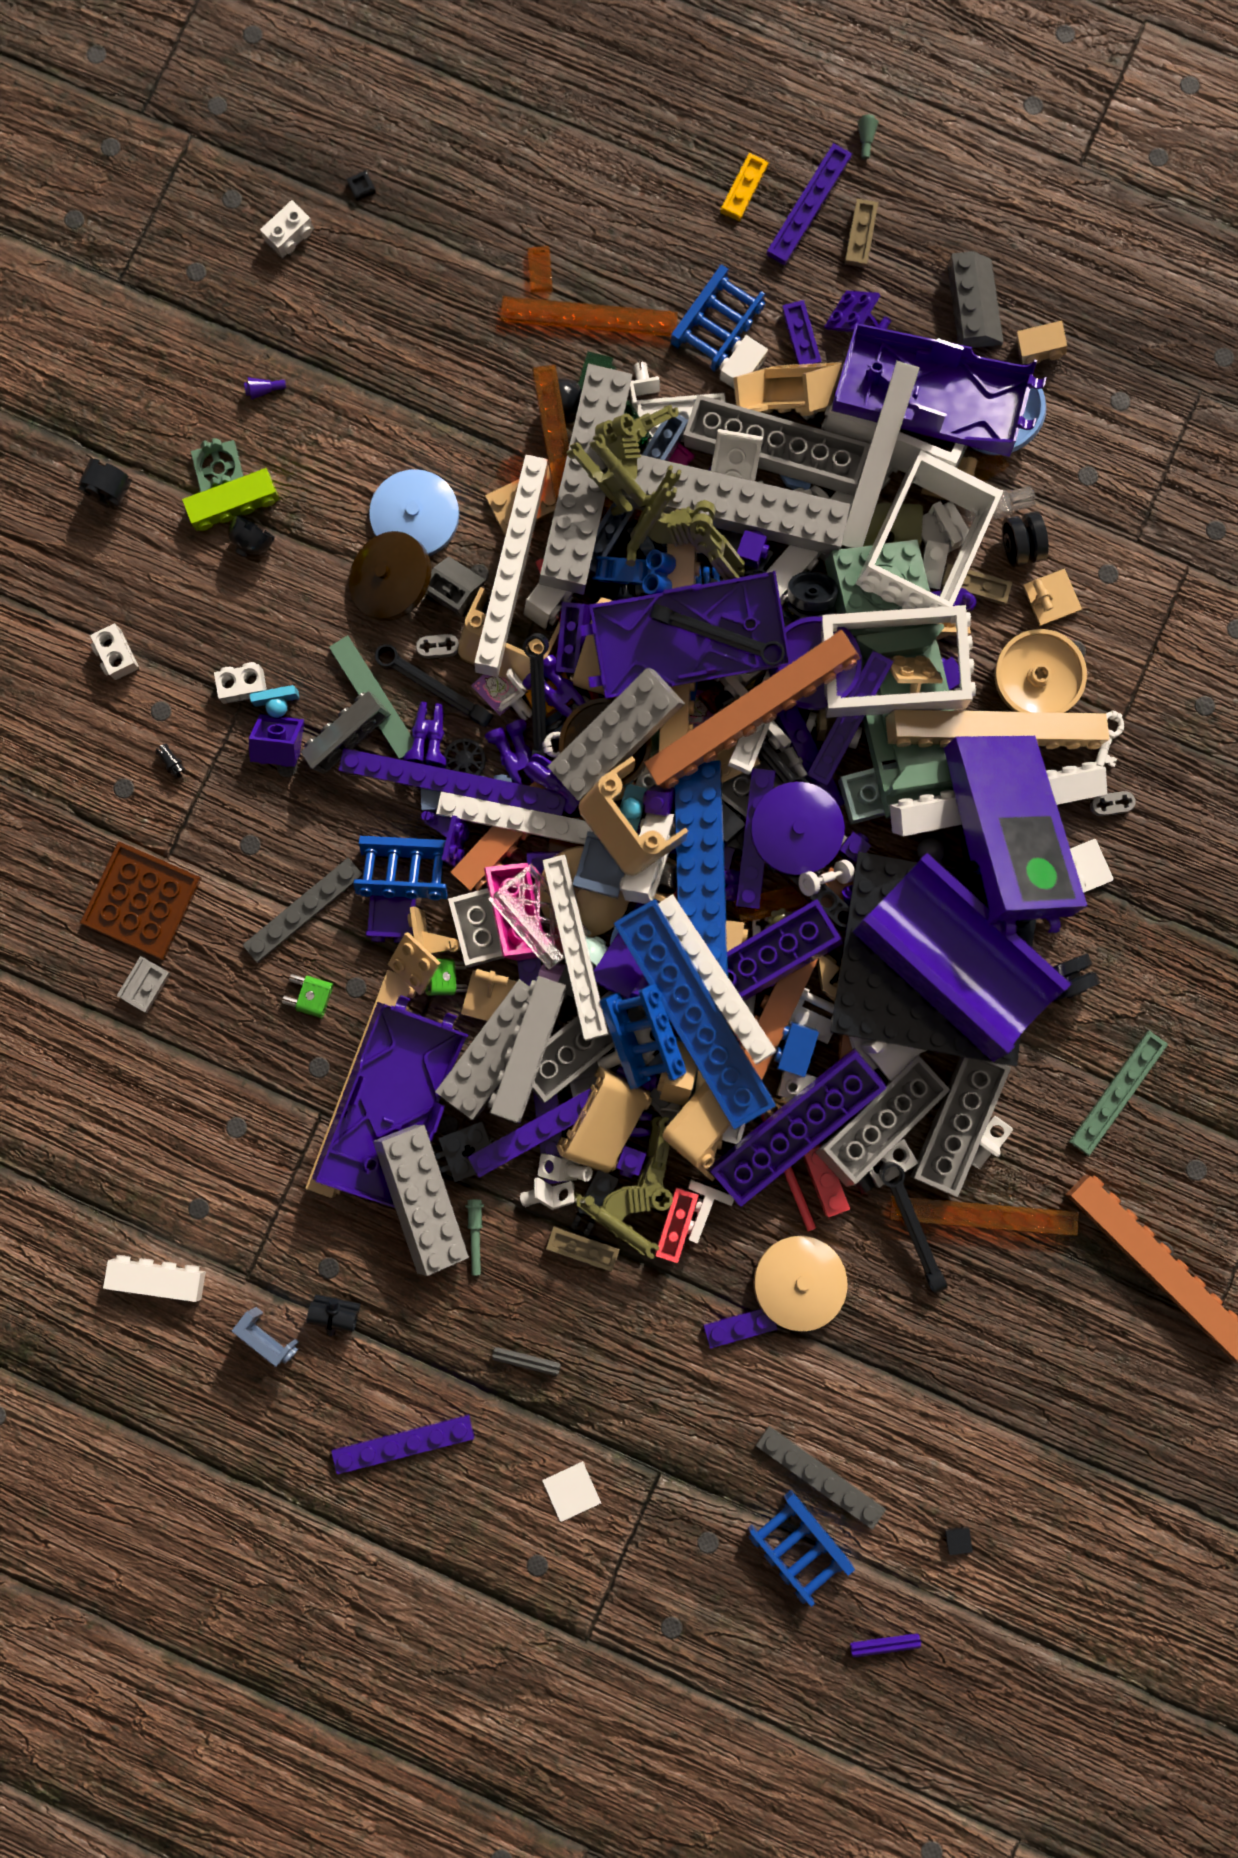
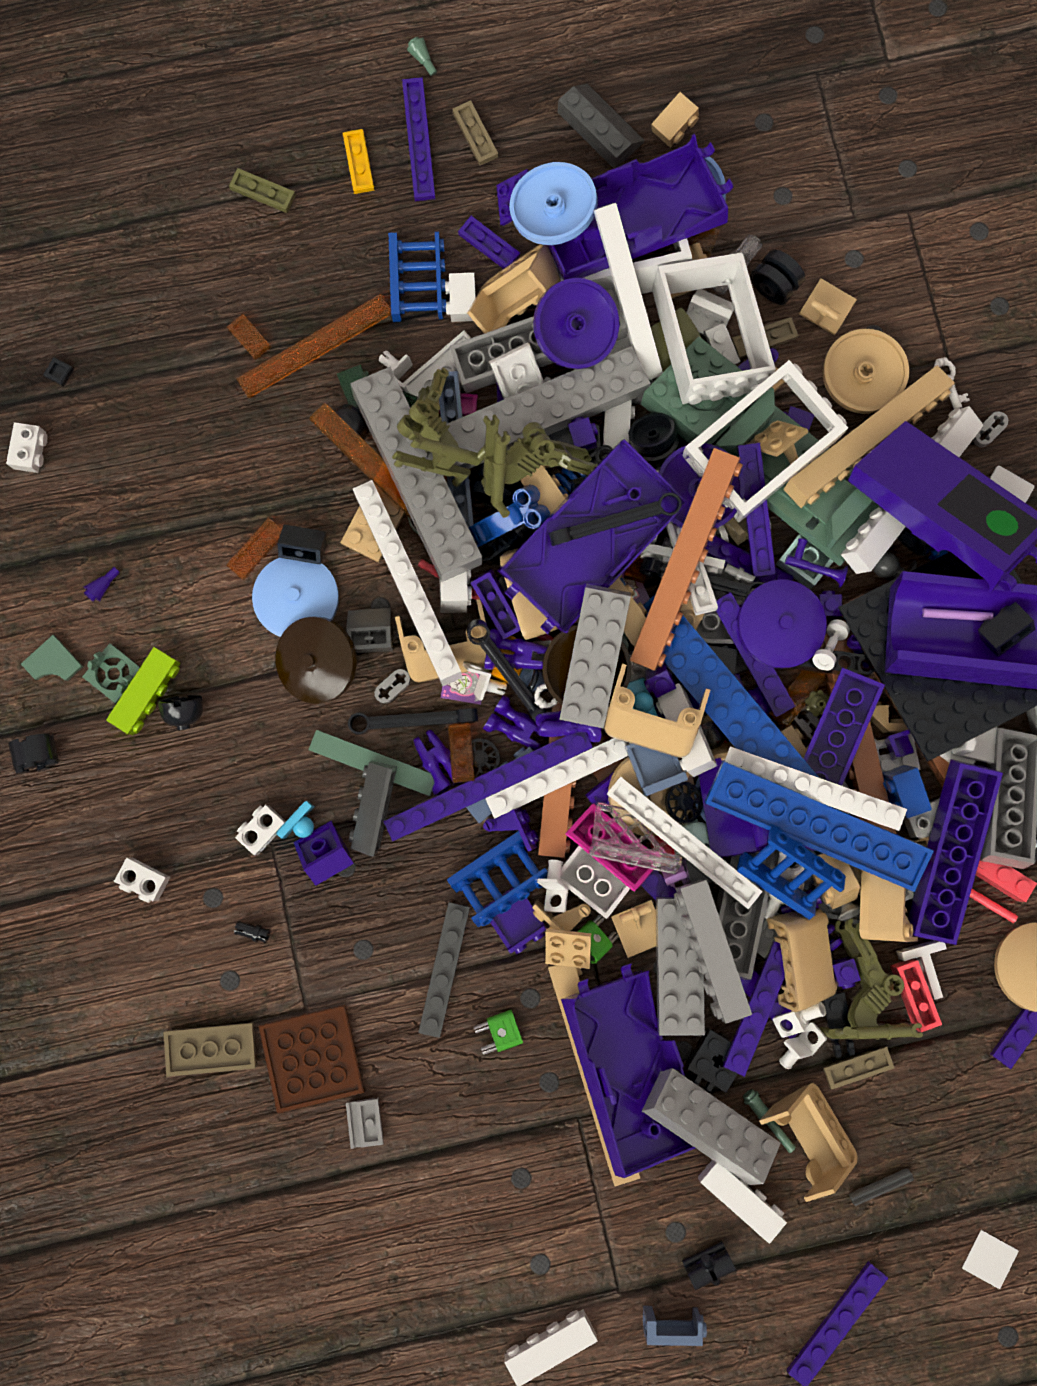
camera: 40 degrees left, 0 degrees up
(65, 830) = (210, 1049): none -> dark tan plate
(177, 419) = (52, 659): none -> sand green tile
(402, 1283) = (743, 1201): none -> white brick
(412, 450) = (255, 549): none -> clear orange tile
(442, 905) = (554, 887): none -> white bracket
(451, 473) = (302, 544): none -> black brick
(451, 741) = (461, 753): none -> clear orange tile
(507, 1278) = (820, 1136): none -> tan windscreen
(602, 917) = (684, 802): none -> black wheel
(644, 154) = (262, 190): none -> olive plate
(814, 449) = (576, 323): none -> dark purple dish
(823, 1007) = (899, 745): none -> dark purple panel
(853, 790) = (798, 562): none -> dark purple piece
(870, 333) = (553, 203): none -> light blue dish
(949, 927) = (957, 614): none -> lavender bar
(978, 967) = (1006, 629): none -> black brick

